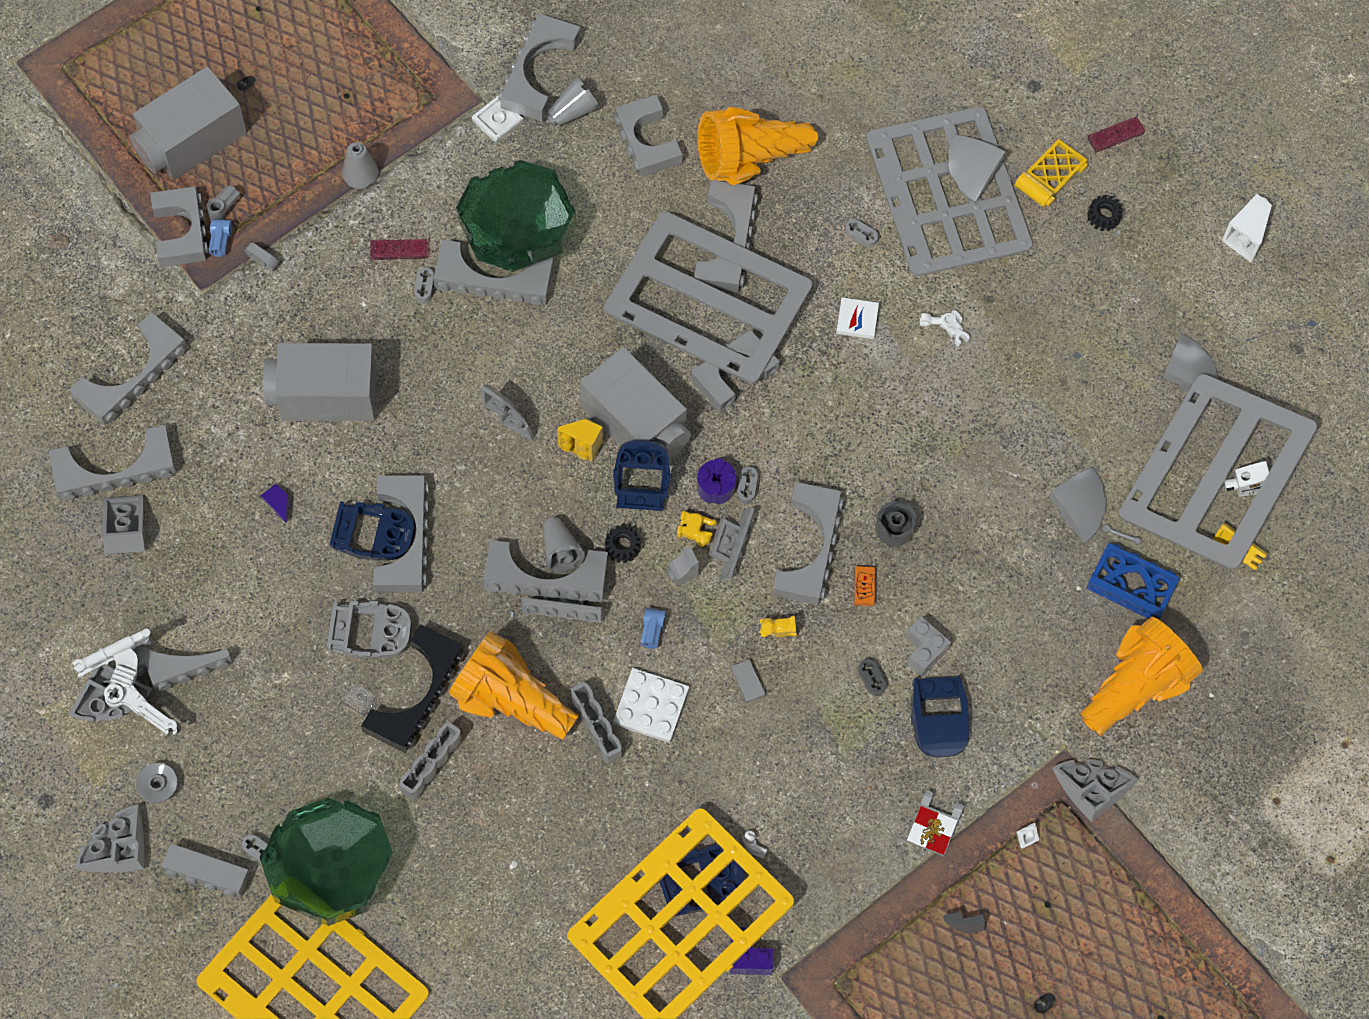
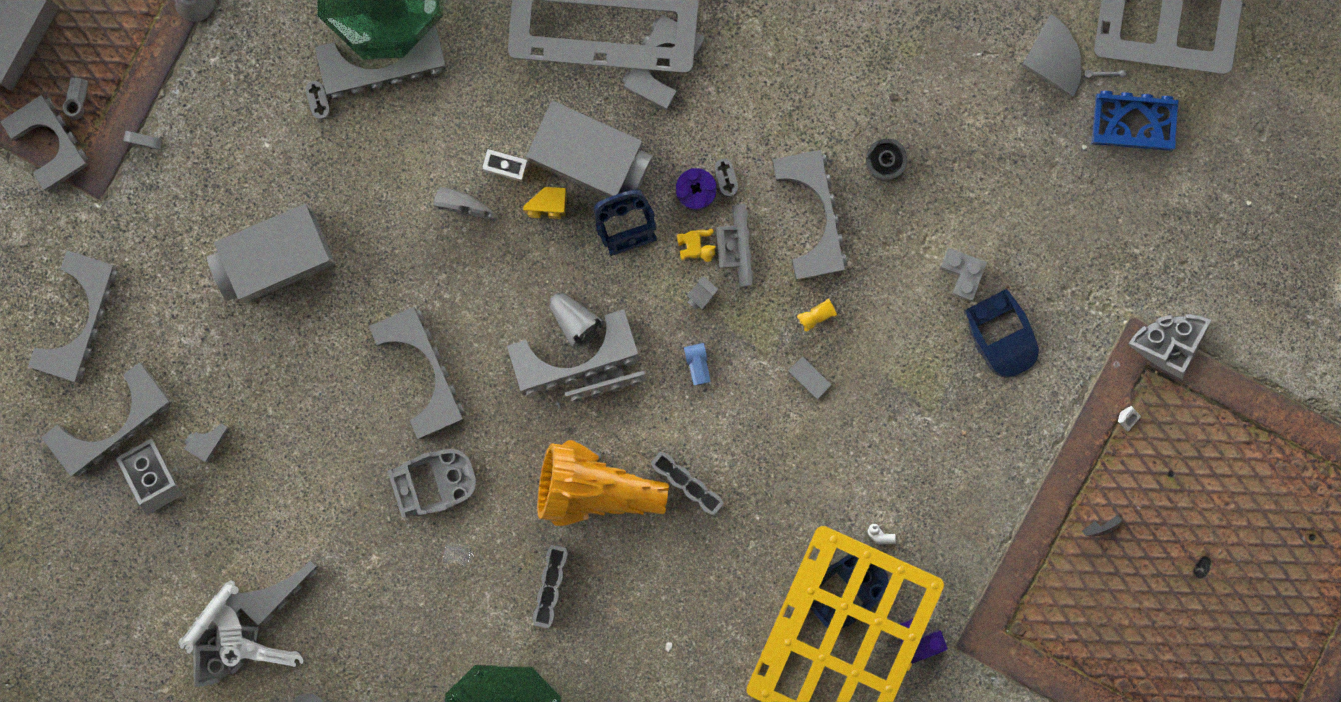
camera: 15 degrees left, 20 degrees up
(187, 517) = (205, 444): none -> light grey arch
(219, 231) = (88, 130): medium blue piece -> none
(278, 501) = (284, 389): dark purple slope -> none
(388, 249) = (285, 65): clear pink tile -> none
(392, 534) = (409, 375): dark blue slope -> none
(401, 727) = (507, 565): black arch -> none
(558, 395) = (505, 165): none -> white brick
(623, 532) = (638, 279): black tyre -> none
(651, 705) = (729, 440): white plate -> none
(864, 586) = (880, 234): orange tile -> none
(868, 680) = (927, 320): dark grey beam -> none
(933, 828) = (1038, 447): flag -> none
(1152, 667) = (1186, 209): light orange cone -> none
(1225, 535) = (1207, 35): yellow hinge -> none

